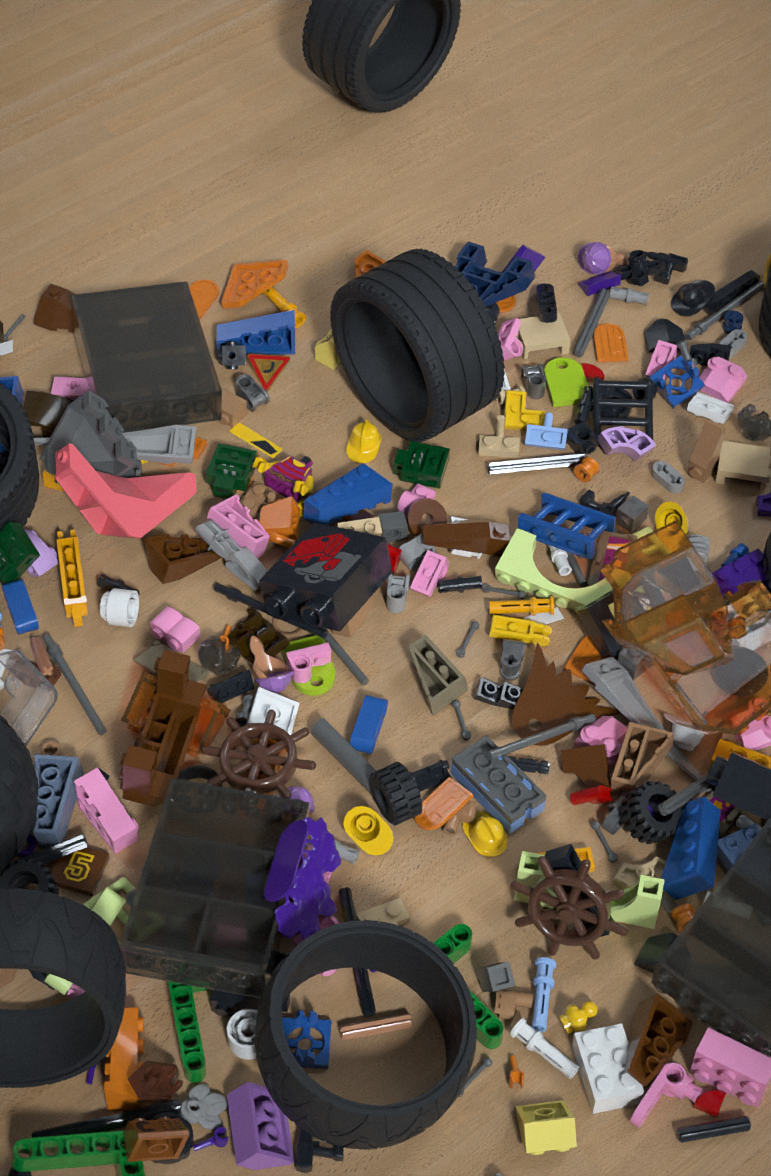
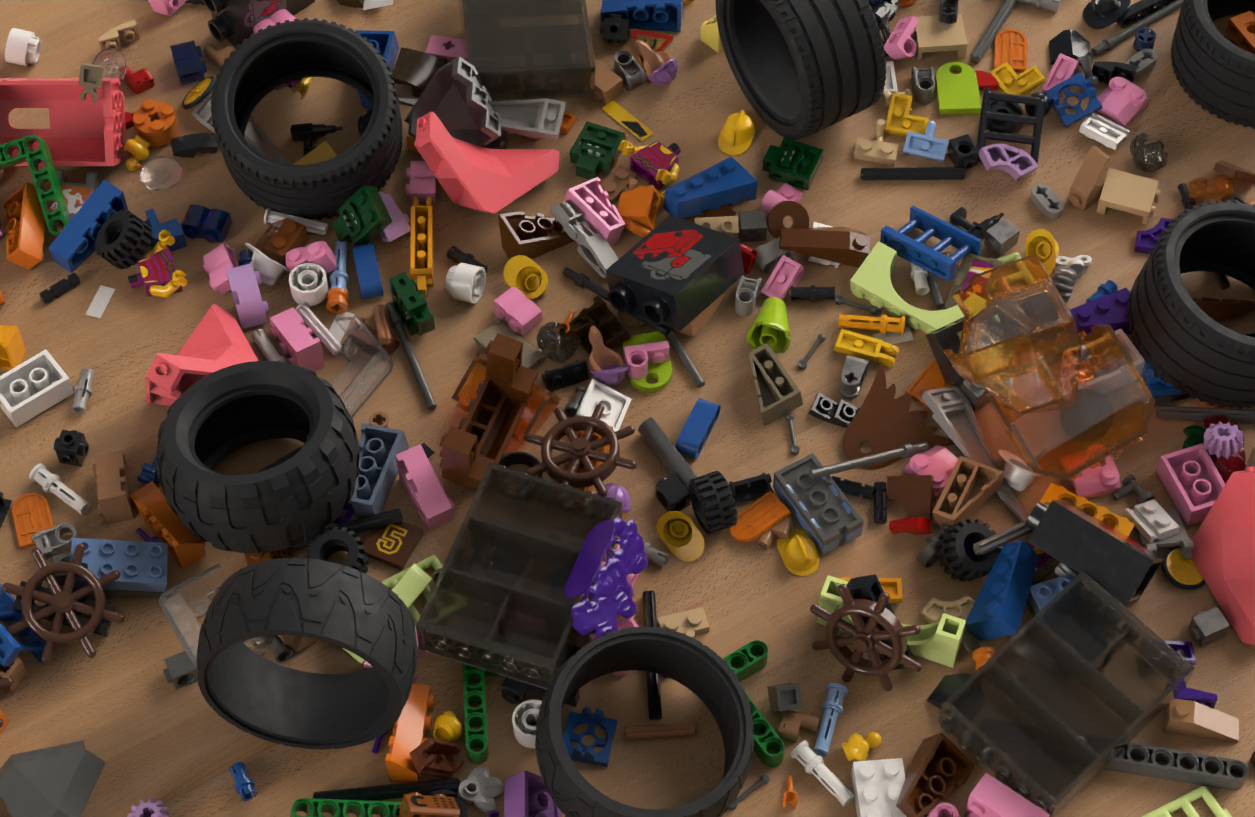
camera: 10 degrees right, 5 degrees up
(63, 515) = (422, 182): none -> bright pink brick
(69, 634) = (411, 305): none -> dark green piece
(161, 1048) = (447, 727): none -> yellow animal
(179, 595) = (526, 276): none -> yellow piece
(280, 386) = (658, 66): none -> piece
(353, 790) = (672, 494): none -> black brick
(426, 619) = (770, 327): none -> lime cone
(557, 777) = (880, 503): none -> black axle
(584, 405) = (971, 117): black pin -> none
(586, 469) = (962, 185): orange wheel -> none
(612, 856) = (923, 590): dark grey hinge -> none
(626, 371) = (1019, 84): none -> yellow tile
(708, 530) = (1077, 263): none -> white piece

